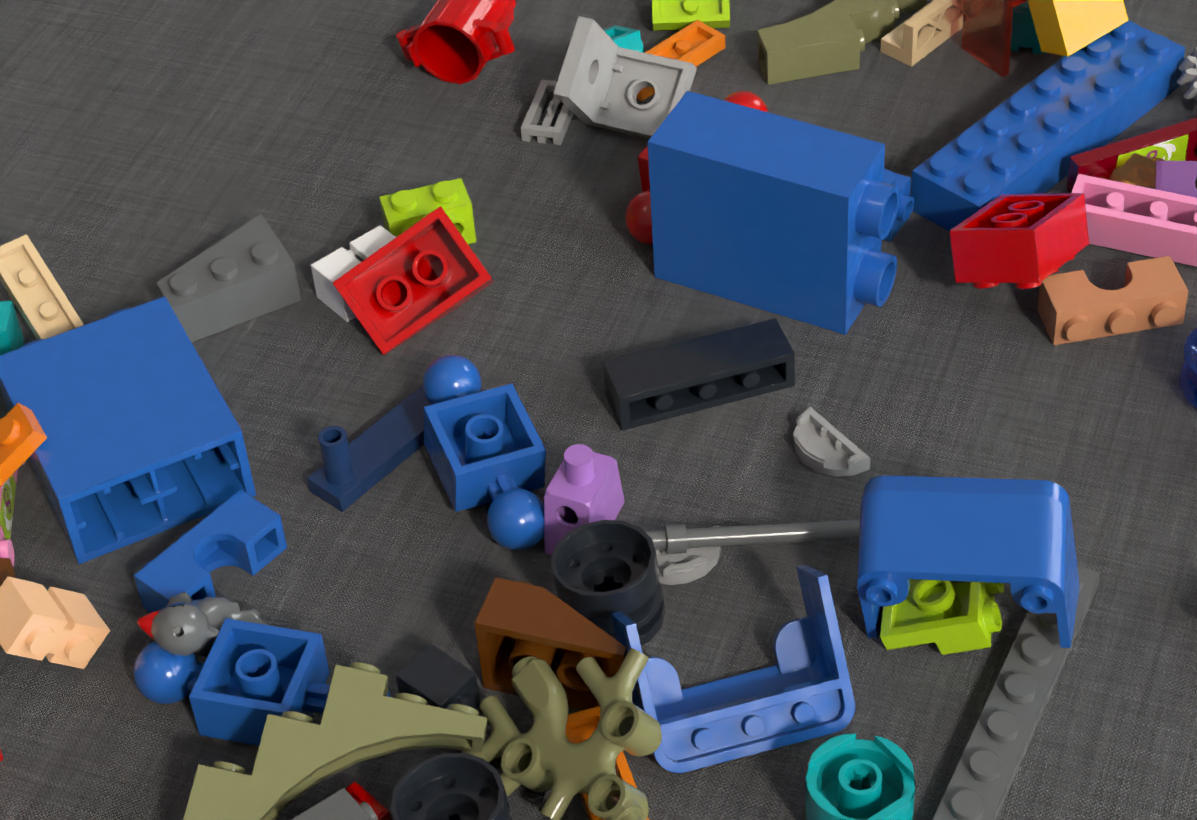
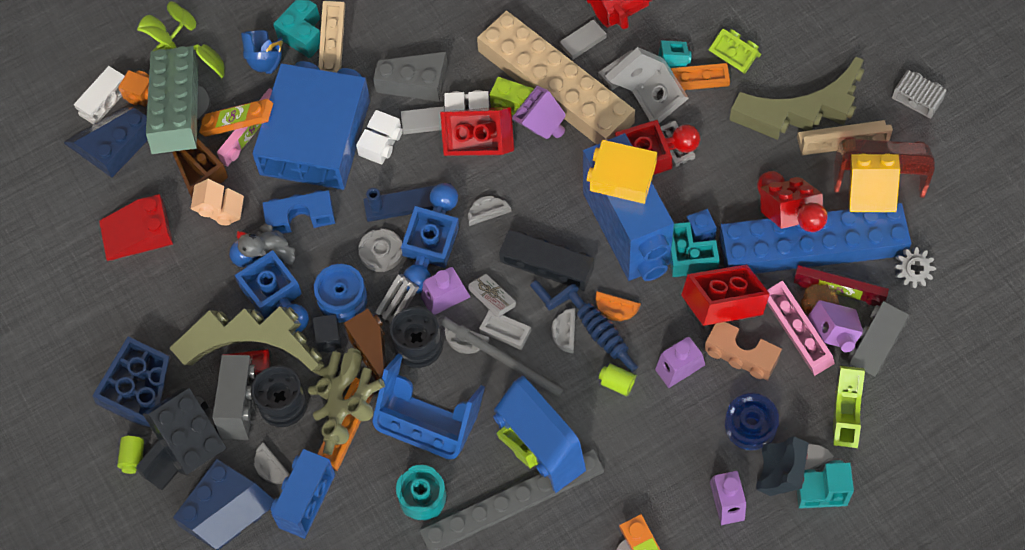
camera: 40 degrees right, 20 degrees up
(252, 384) = (377, 143): none -> white piece
(302, 331) = (421, 120): none -> light grey tile
(404, 607) = (340, 292): none -> blue wheel
(407, 530) = (380, 250): none -> light grey tile
(453, 110) = (582, 39): none -> light grey tile
(498, 200) = (541, 114): none -> medium lavender torso
(501, 163) = (535, 62): none -> tan brick
(514, 522) = (390, 294): none -> light grey tile
(533, 372) = (487, 208): none -> light grey tile
(665, 468) = (492, 295): none -> light grey tile
(732, 501) = (505, 330): none -> light grey tile
(745, 119) = (622, 171): none -> yellow brick
(850, 401) = (597, 325): none -> dark blue piece
(865, 372) = (615, 307): none -> orange tile
(922, 234) = (689, 256): none -> teal brick
(981, 447) = (617, 379): none -> lime brick
(985, 81) = (791, 202): none -> red brick
(1049, 340) = (682, 360): none -> medium lavender torso

